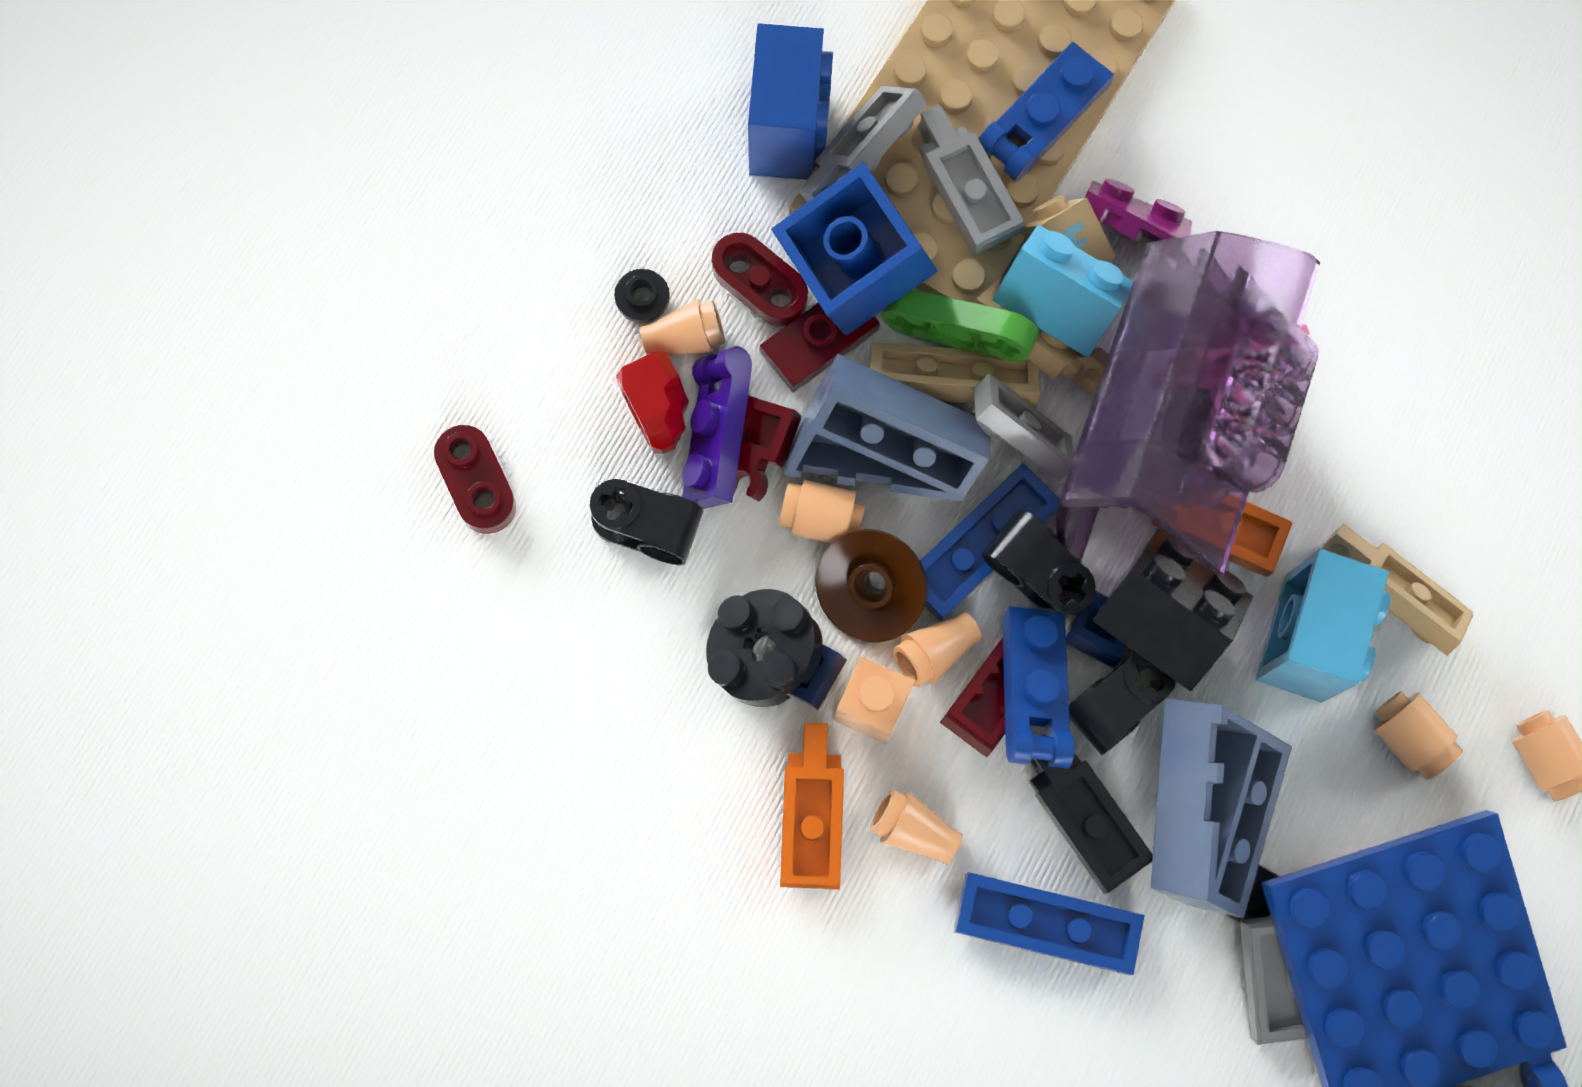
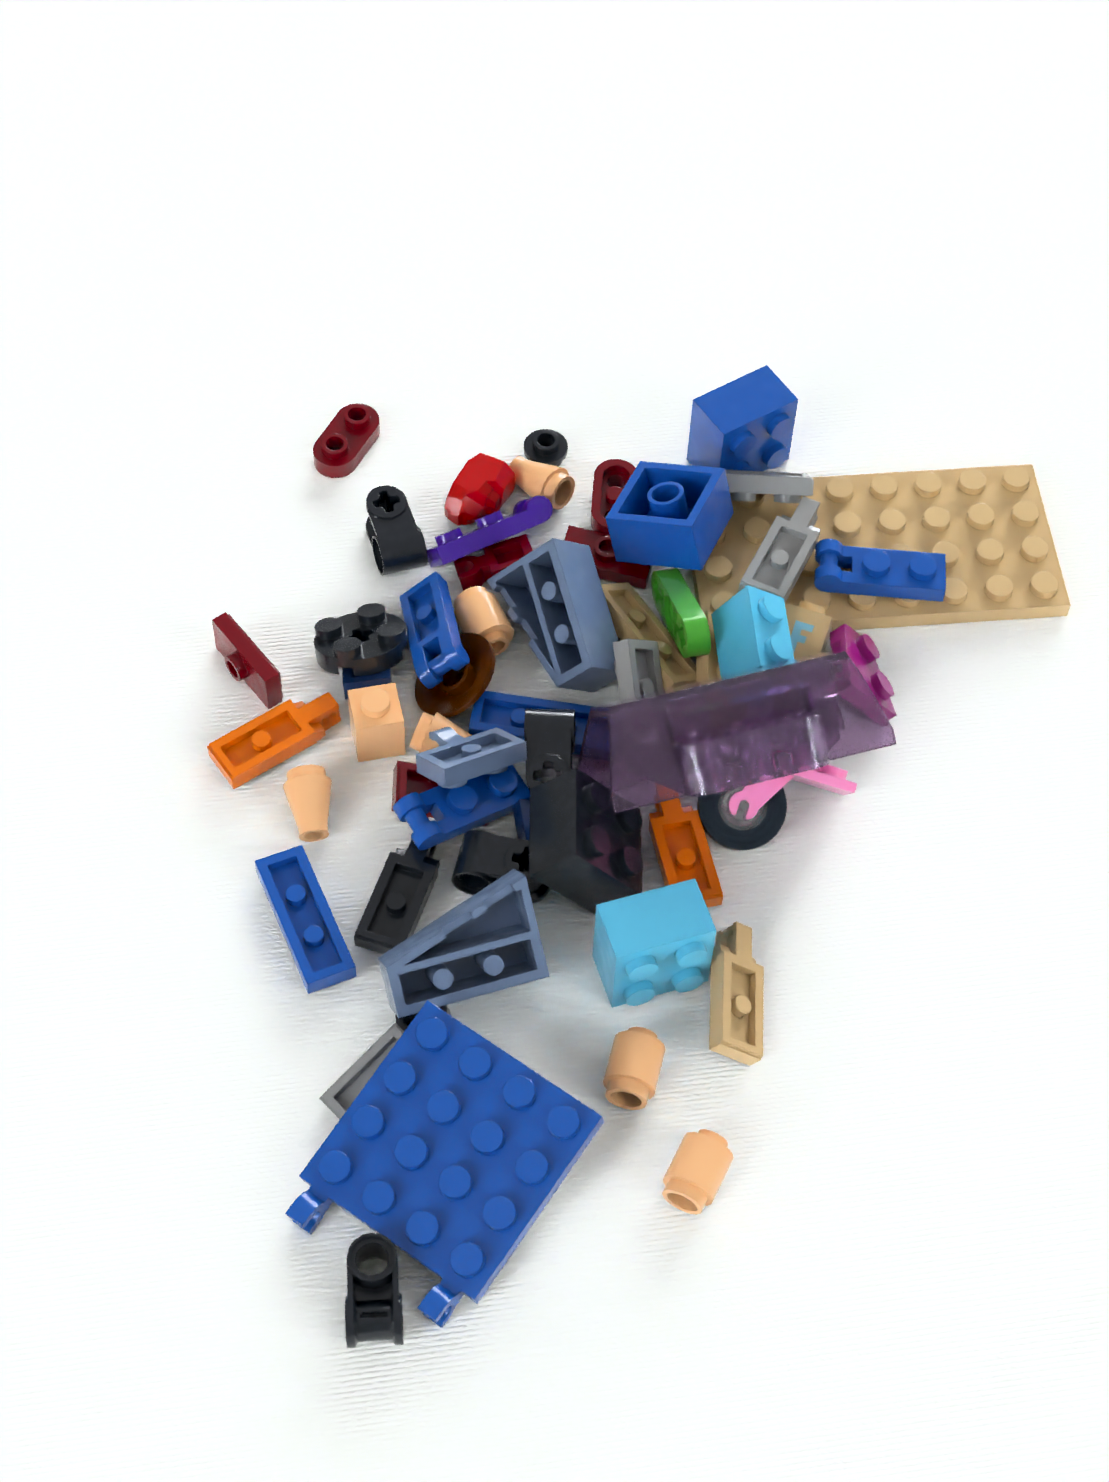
camera: 55 degrees right, 20 degrees down
(698, 776) = (246, 660): none -> dark red plate
(804, 569) = (432, 630): none -> blue plate
(1010, 653) = (469, 757): none -> sand blue plate

